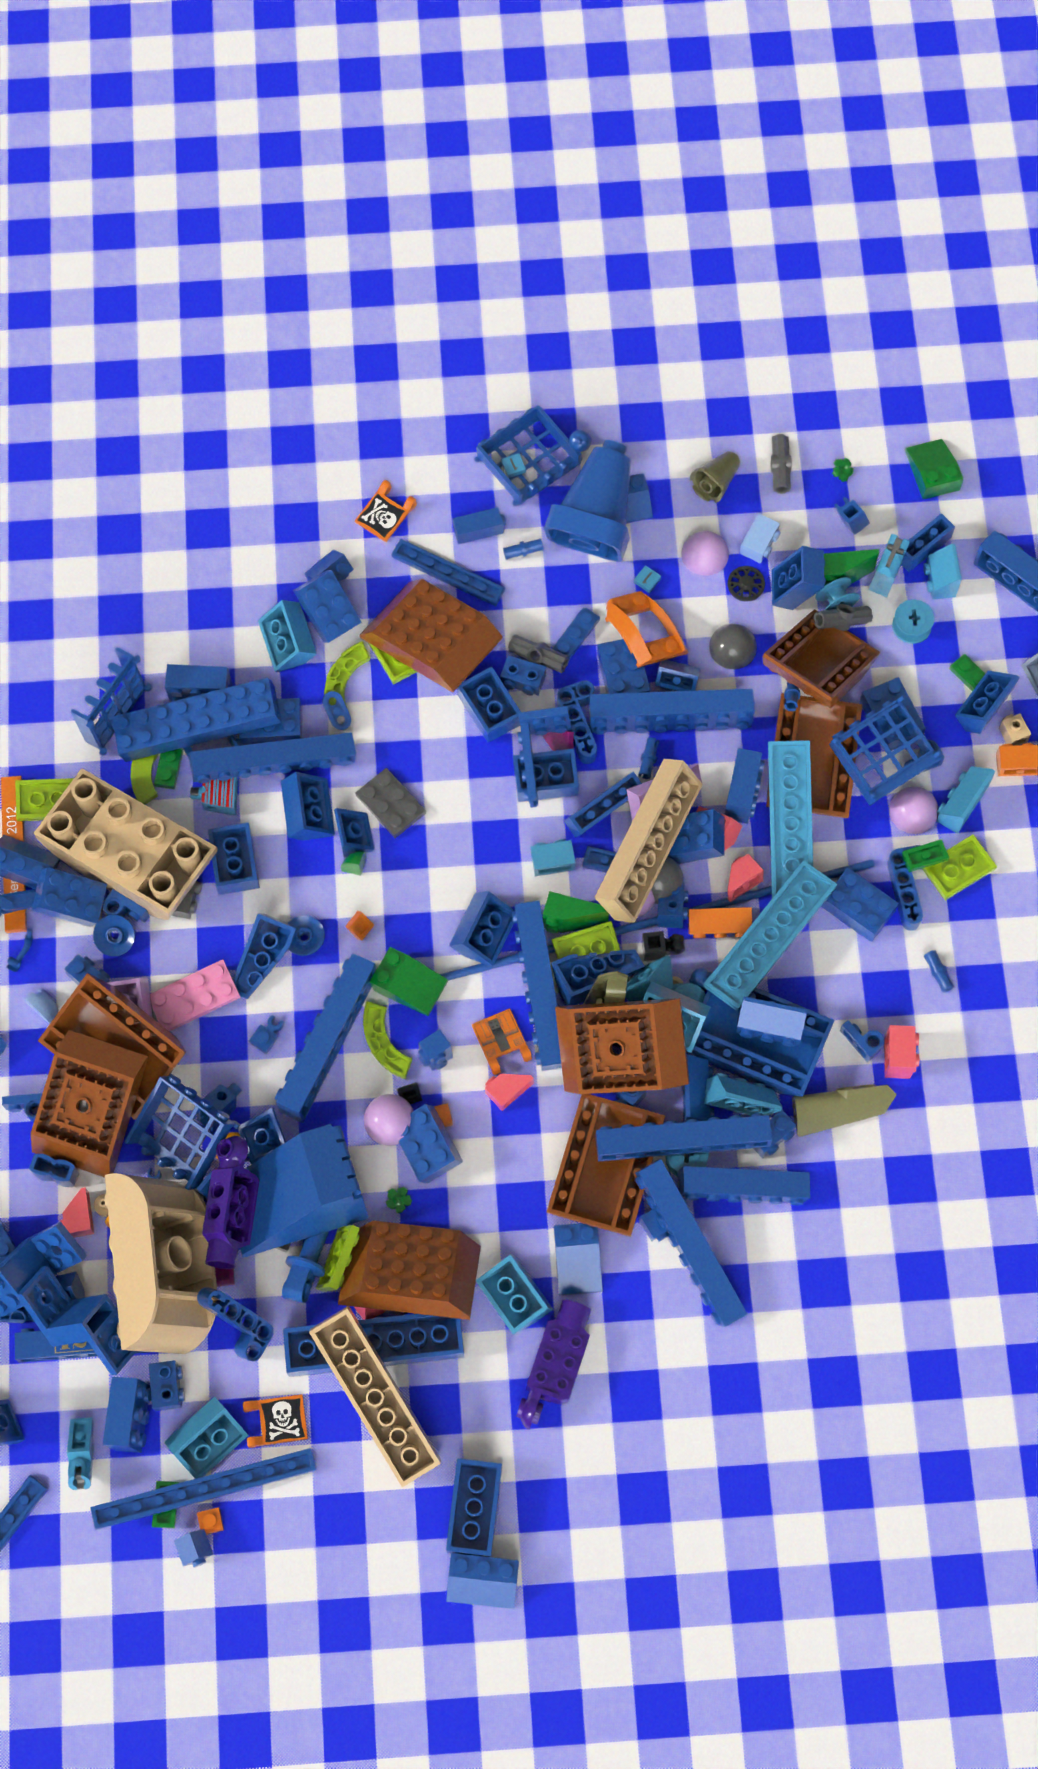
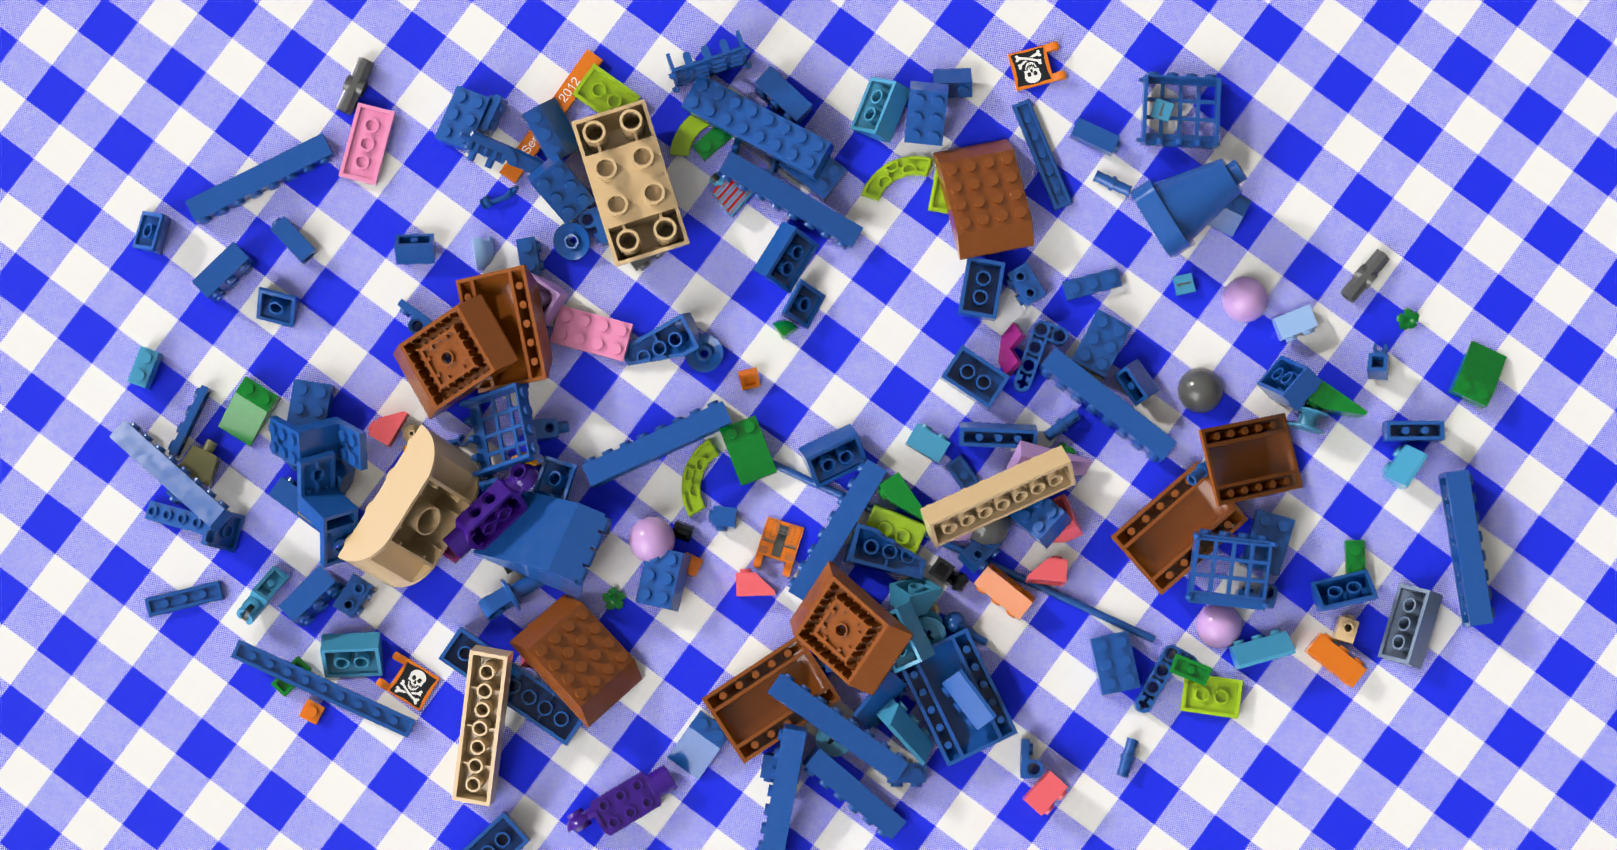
camera: 40 degrees right, 15 degrees up
(48, 1169) = (394, 378): blue brick -> none
(193, 1548) = (286, 722): brick -> none
(234, 1317) = (441, 609): blue beam -> none
(235, 859) = (703, 254): blue brick -> none
(265, 1037) = (617, 405): blue plate -> none
(336, 710) = (868, 199): blue plate -> none
(338, 1258) = (536, 609): lime plate -> none
(390, 803) = (848, 302): dark grey plate -> none
(514, 1294) = (634, 733): dark azure slope -> none
(529, 649) = (1051, 277): dark grey piece -> none
(538, 723) = (999, 339): blue bracket -> none
(580, 440) = (1225, 136): blue piece -> none
(608, 988) = (876, 588): olive panel -> none
(645, 653) = (1136, 350): orange wedge -> none
(715, 476) = (1306, 246): olive cone -> none
(744, 785) = (1109, 507): blue brick -> none
(746, 583) = (1254, 348): pearl dark grey wheel -> none
(770, 935) = (1026, 635): dark azure plate -> none
(789, 809) = (1115, 565): dark azure plate -> none
(840, 1107) = (970, 794): olive panel -> none
(843, 617) = (1297, 439): dark grey piece -> none
(889, 565) = (1368, 428): dark azure plate -> none
(903, 624) = (1359, 485): dark azure piece -> none

